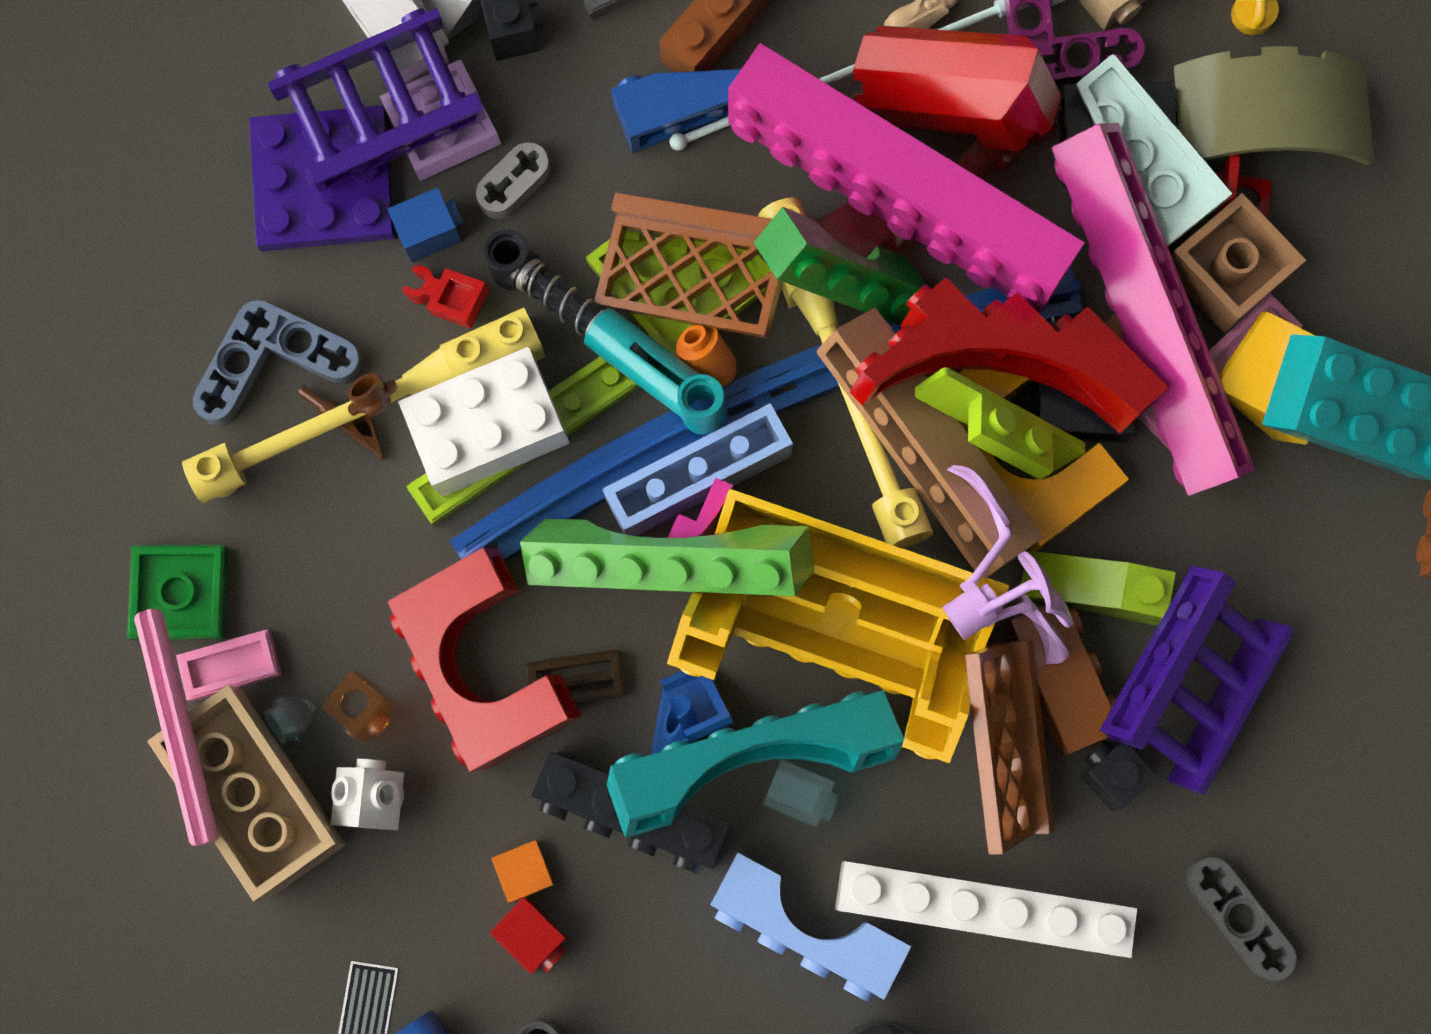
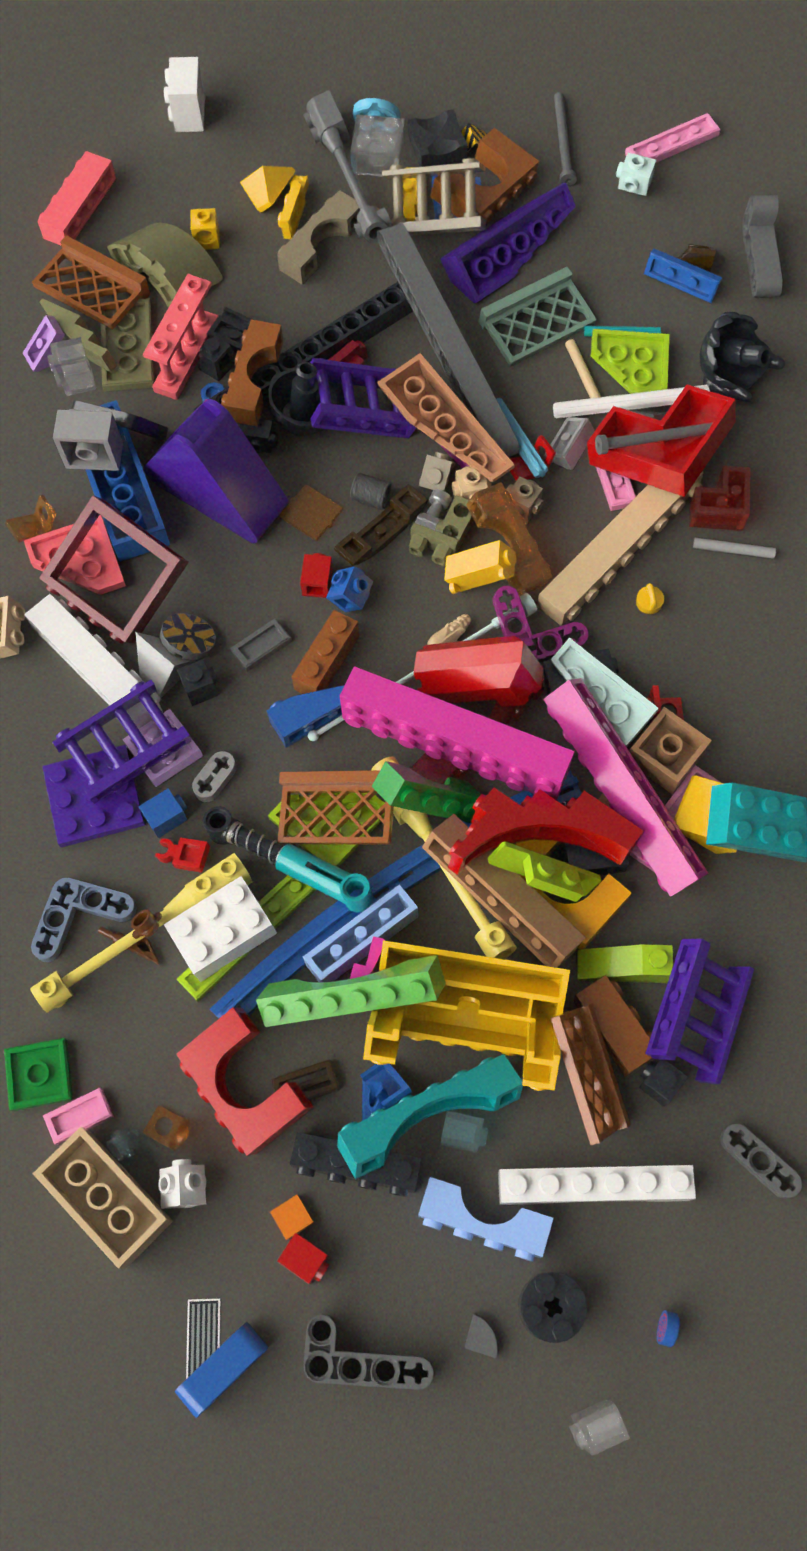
camera: 10 degrees left, 10 degrees down
(176, 727) = (51, 1161): bright pink axle -> none
(707, 353) = (354, 860): orange brick -> none
(983, 608) = (554, 986): lavender plant -> none
(1274, 104) = (673, 651): olive panel -> none

